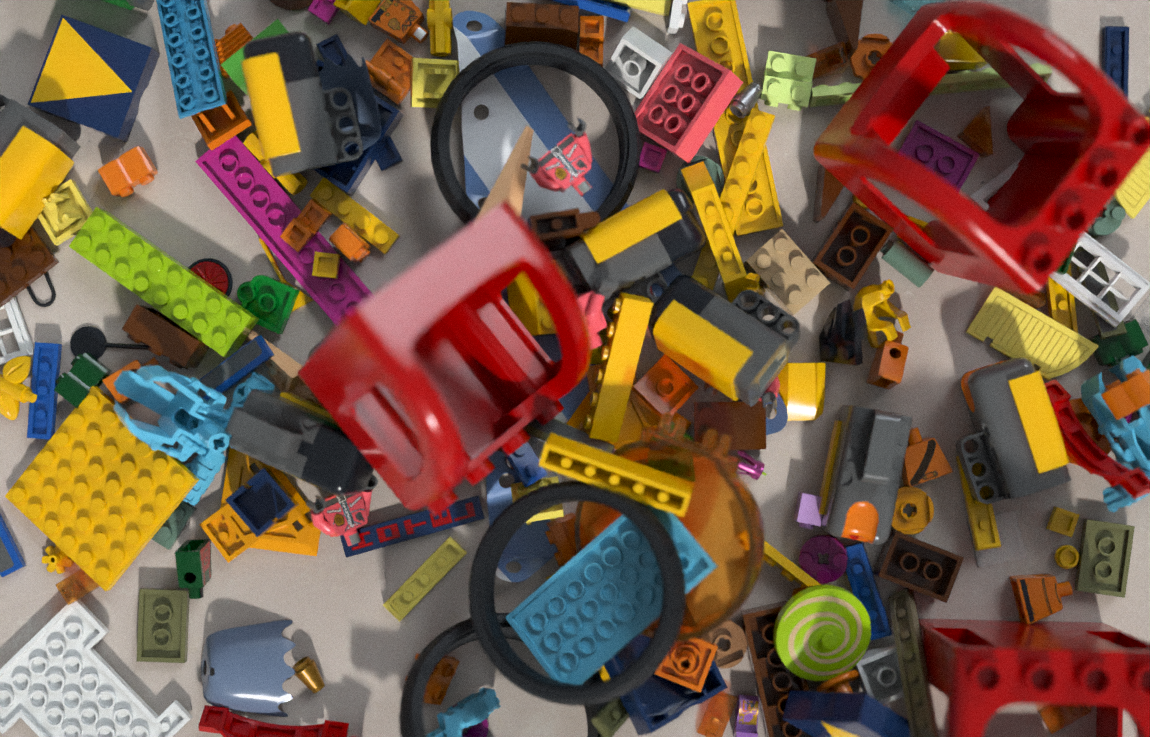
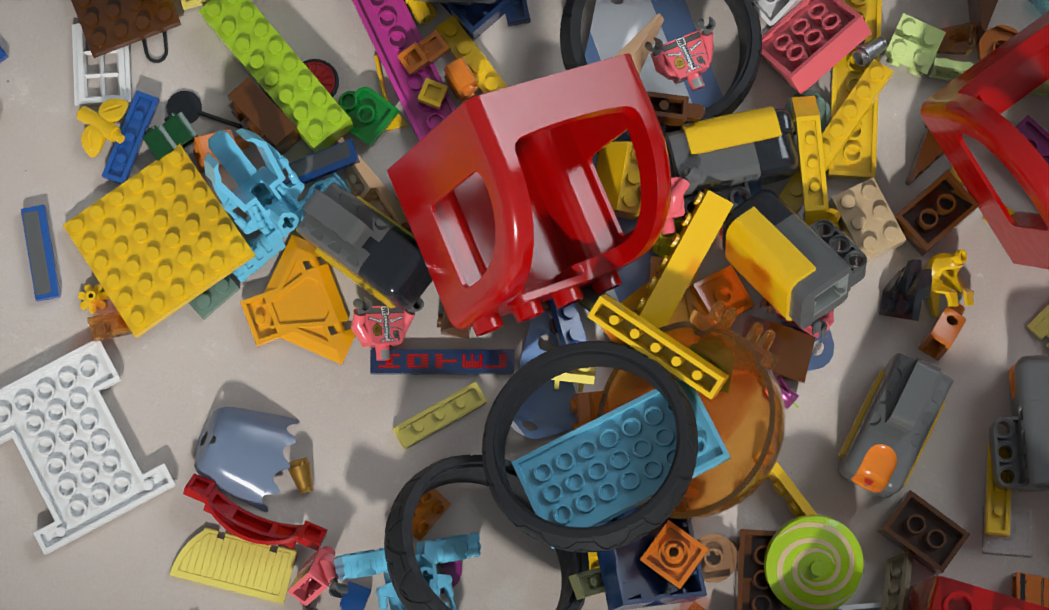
camera: 15 degrees right, 10 degrees down
(163, 625) = (175, 388): olive plate -> none
(194, 566) = (223, 329): dark green torso -> none
(262, 502) = (309, 295): dark blue piece -> none
(652, 157) = (767, 81): dark pink plate -> none
(803, 390) = (854, 334): yellow slope -> none
(808, 510) = (829, 451): lavender brick -> none
(837, 557) = (836, 488): magenta plate -> none
(866, 590) = (866, 532): blue plate -> none
(906, 262) = (984, 243): sand green brick -> none
(923, 460) = (953, 433): orange torso -> none
(923, 510) = (939, 471): light orange plate -> none

